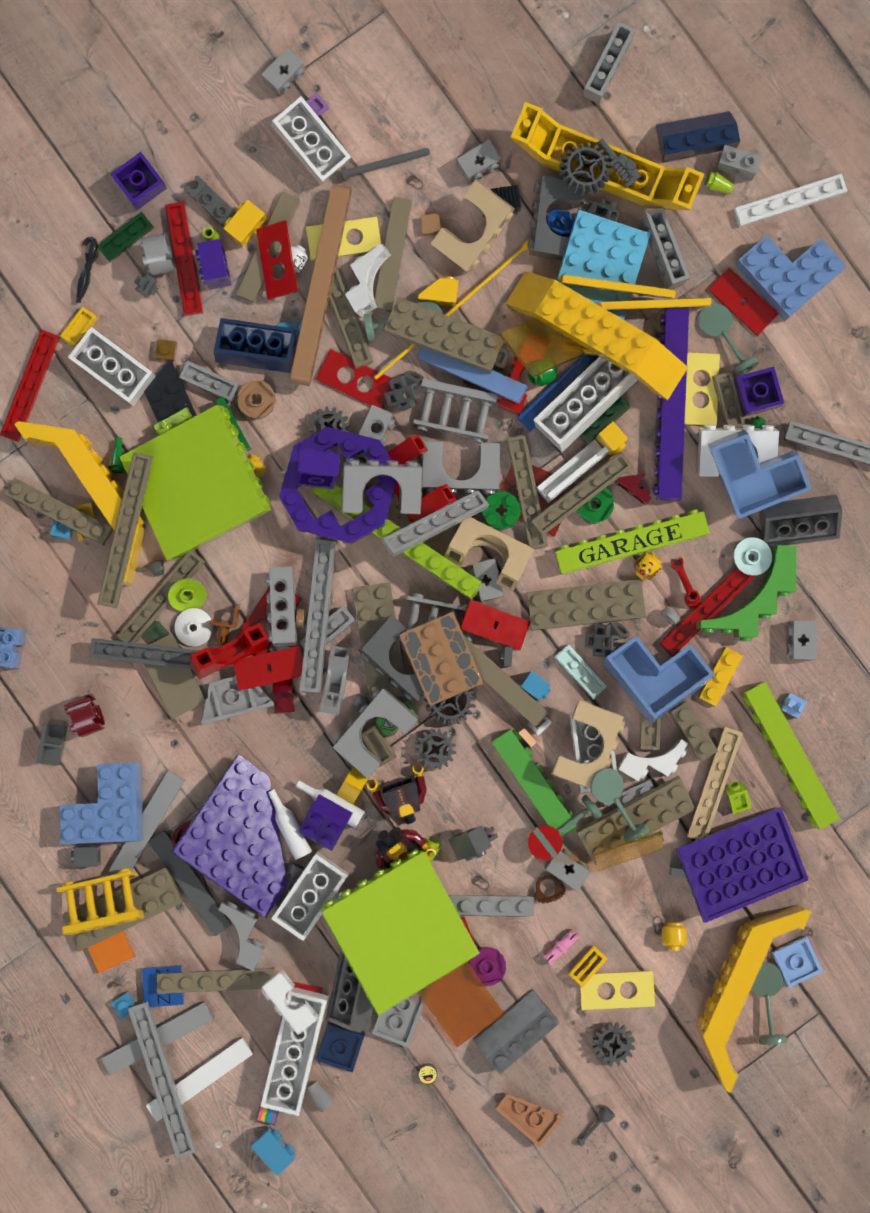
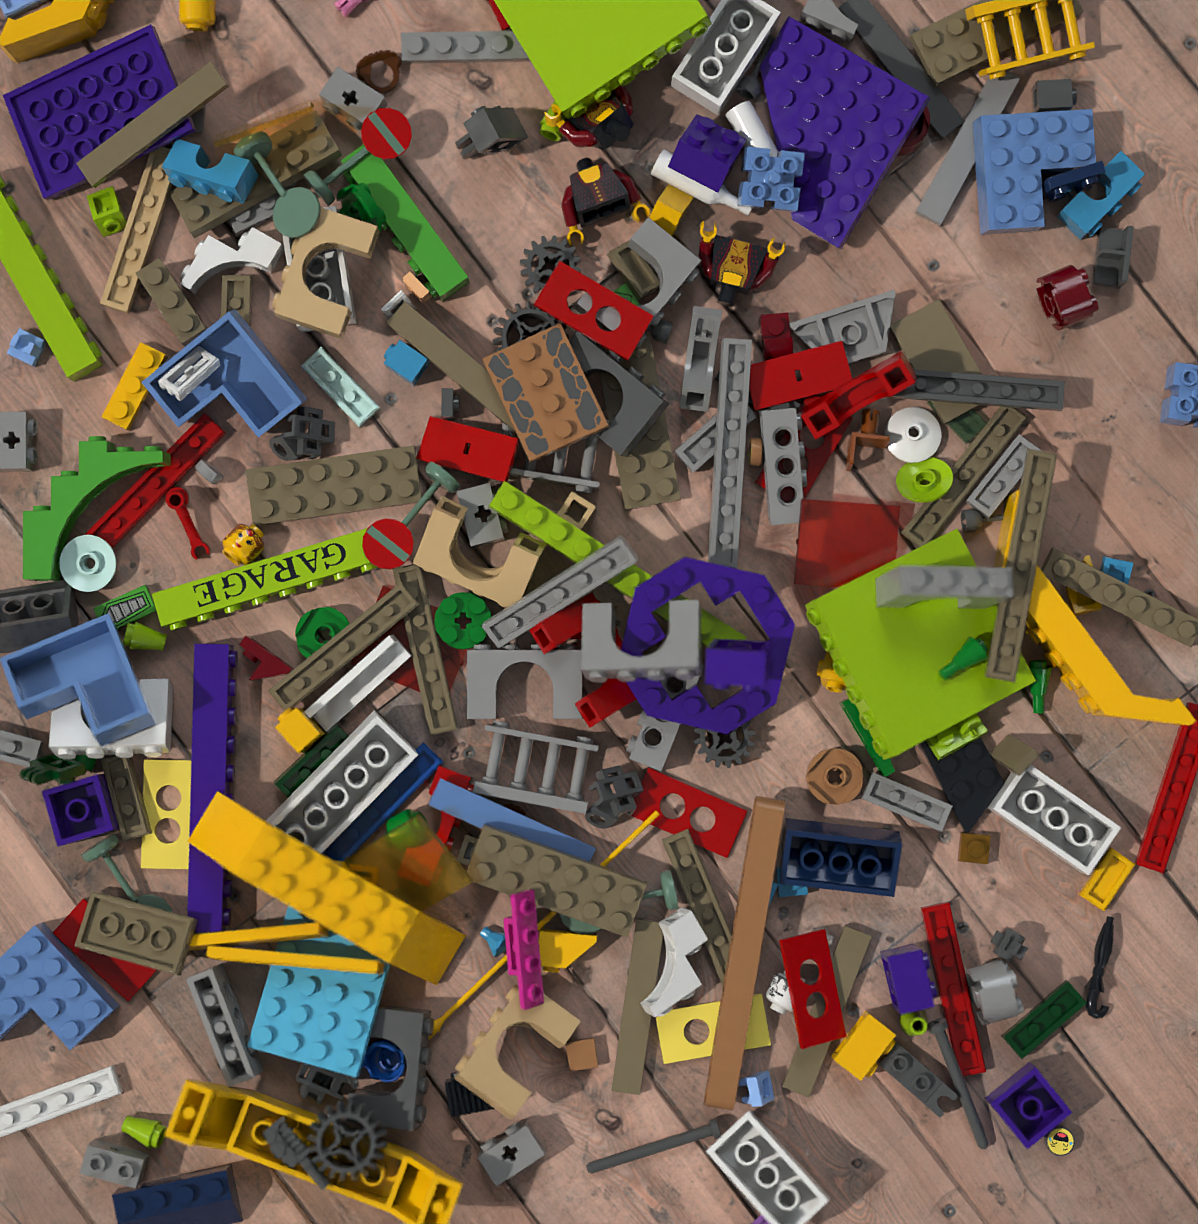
camera: 175 degrees right, 0 degrees up
(44, 797) = (1084, 214): none -> dark azure arch
(71, 796) = (1079, 179): none -> dark blue plate
(118, 158) = (1059, 1141): none -> tile
(134, 596) = (1001, 478): none -> light grey plate
(136, 408) = (1014, 754): none -> dark tan tile
(163, 472) = (969, 654): none -> green cone
(178, 515) = (971, 585): none -> light grey arch
(195, 232) = (938, 1028): none -> dark grey bar
(243, 554) = (843, 541): none -> clear red piece
(282, 801) = (770, 179): none -> medium blue brick
(309, 746) = (735, 264): none -> torso
(314, 198) = (759, 1089): none -> light blue tile
(380, 706) = (567, 280): none -> red piece
(423, 579) = (577, 511): none -> tan brick
(466, 290) = (523, 948): none -> dark pink bracket
(483, 298) = (495, 940): none -> dark azure rock
(549, 563) = (389, 541): none -> piece
(564, 791) = (360, 205): none -> green plate
(653, 812) = (228, 180): none -> dark azure arch
(681, 675) = (192, 375): none -> white tile
(704, 852) = (152, 124): none -> dark tan tile
(715, 505) = (143, 637): none -> lime cone
(722, 309) = (136, 933): none -> dark tan tile
(727, 526) = (128, 607): none -> tile
(779, 418) = (52, 768): none -> dark green hinge

